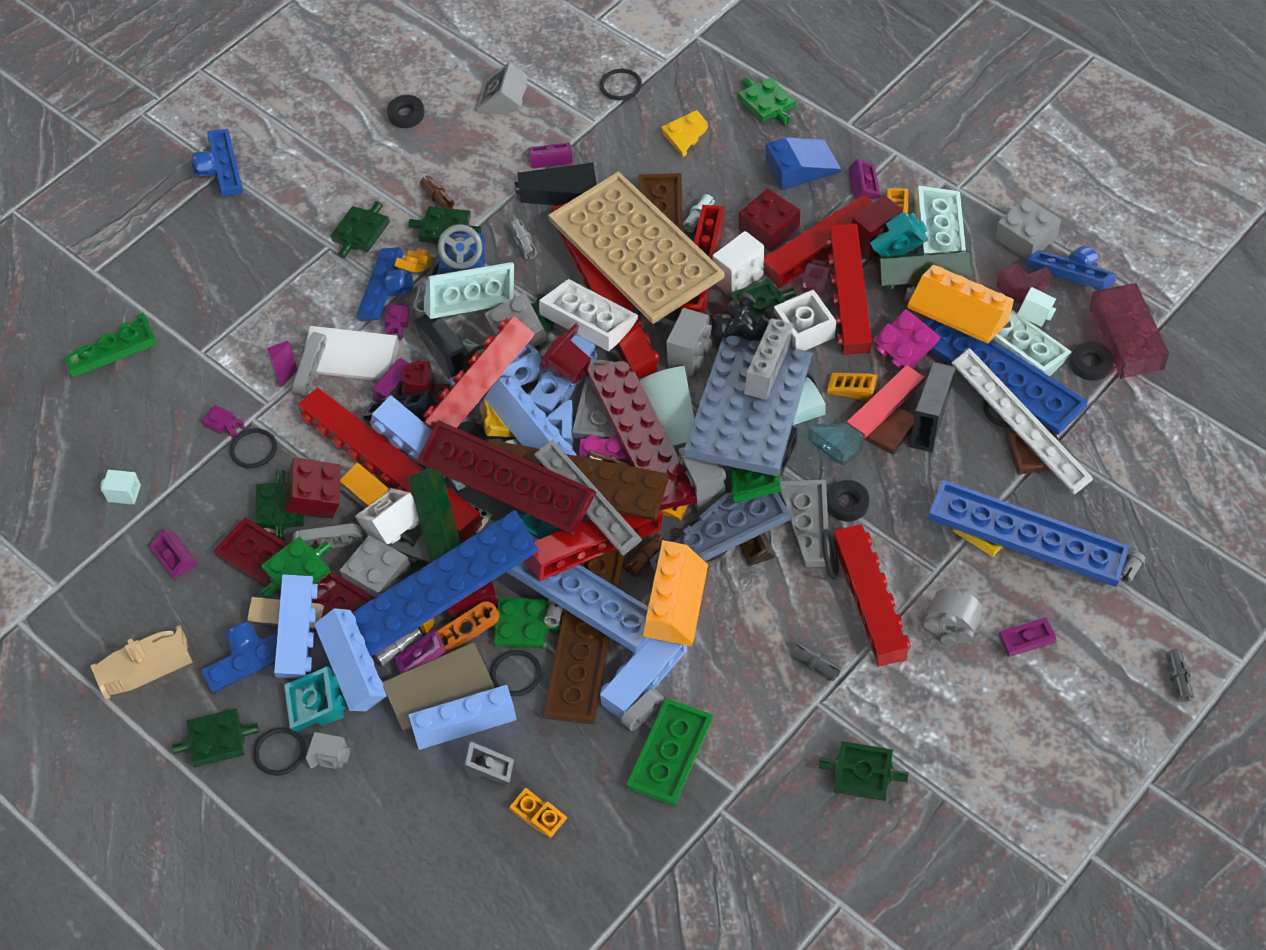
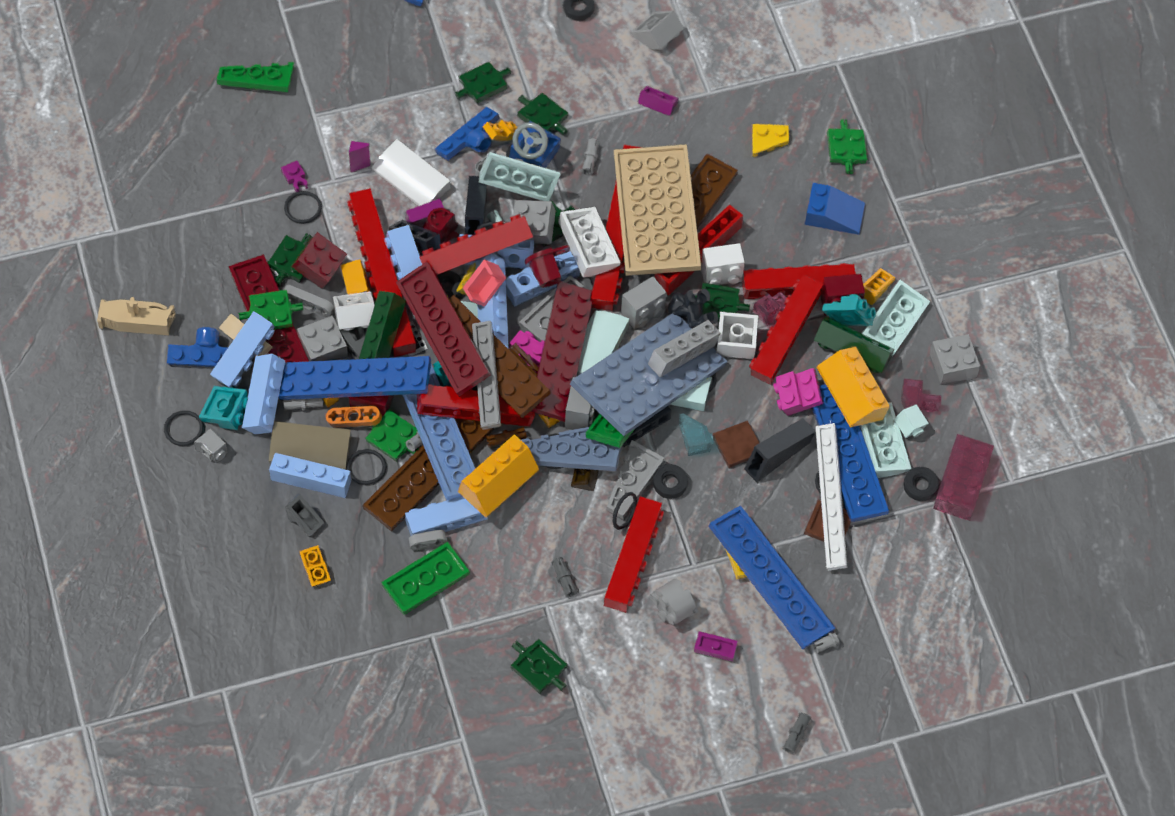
camera: 25 degrees right, 5 degrees up
(120, 487) = (198, 184): light aqua brick -> none
(172, 553) = (203, 252): magenta slope -> none
(215, 738) = (149, 395): dark green plate -> none
(309, 363) = (377, 167): light grey beam -> none
(396, 318) = (460, 166): magenta plate -> none
(421, 652) = (313, 416): magenta plate -> none
(436, 192) = (555, 84): reddish brown pin -> none
(514, 408) = (484, 283): none -> coral panel
(555, 184) = (642, 127): black slope -> none
(563, 420) = (518, 310): light blue slope -> none
(622, 70) = (748, 84): black piece -> none
(693, 219) = (737, 204): light aqua pin -> none
(769, 219) = (773, 243): dark red brick -> none
(859, 392) = (743, 414): light orange slope -> none
(864, 180) = (869, 252): magenta slope -> none
(886, 401) = (749, 427): coral tile -> none
(1076, 267) = (961, 409): blue plate -> none

